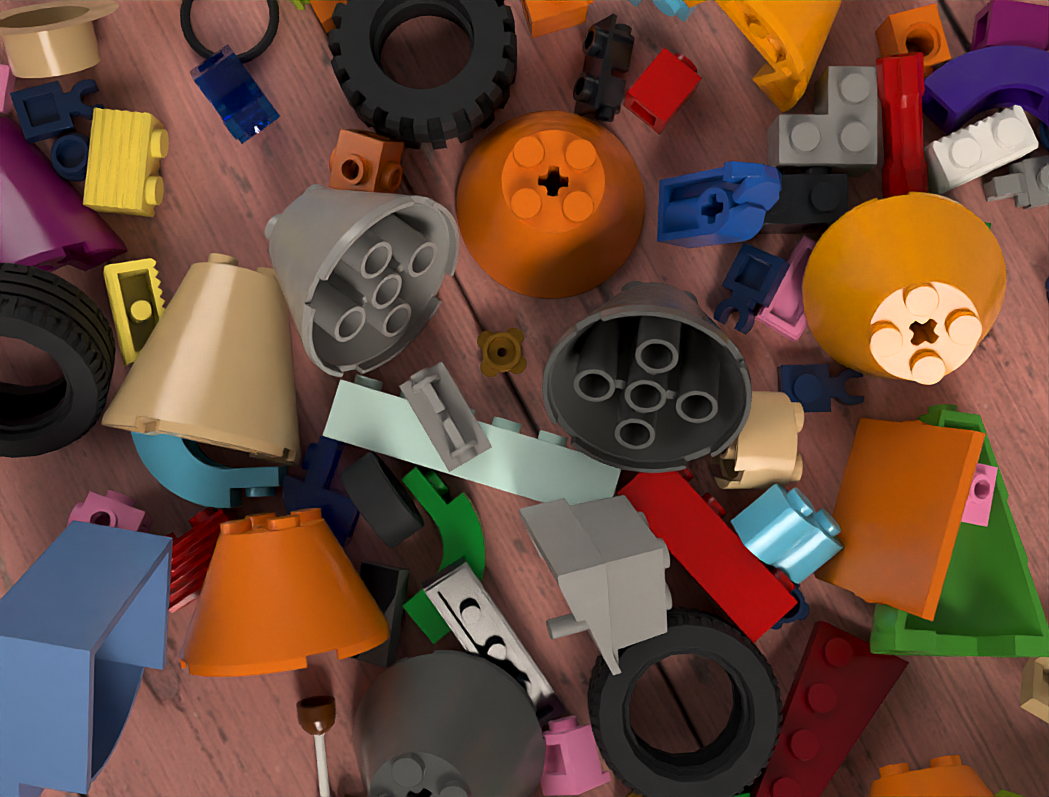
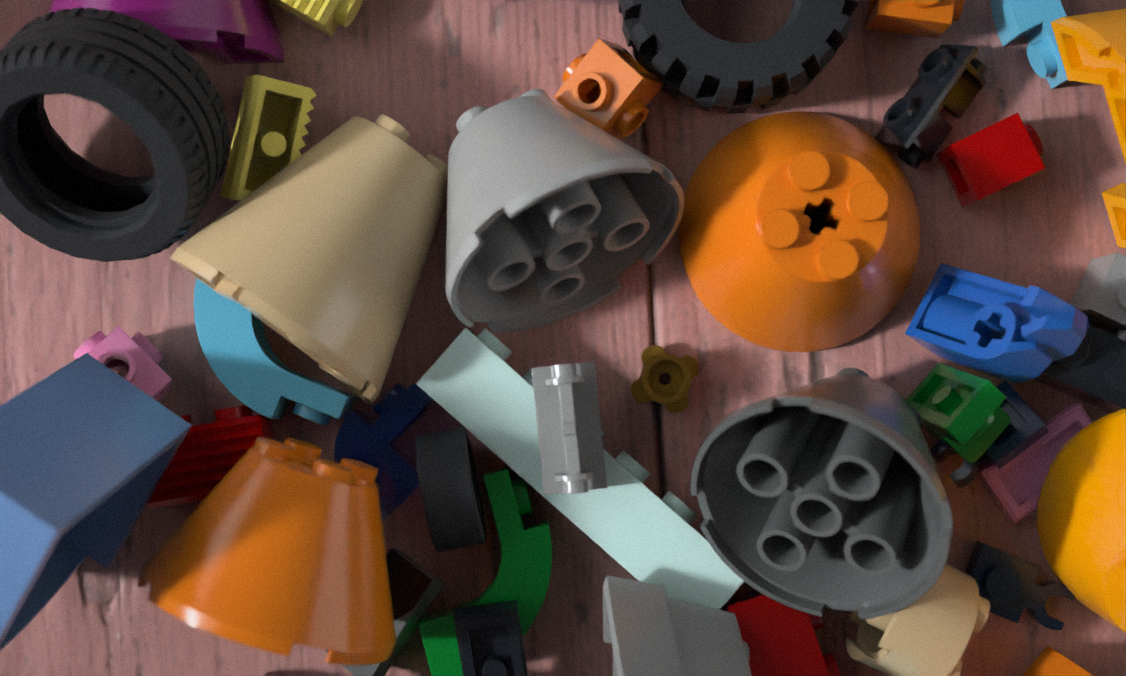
camera: 20 degrees right, 0 degrees up
(721, 278) = (960, 410): none -> green slope

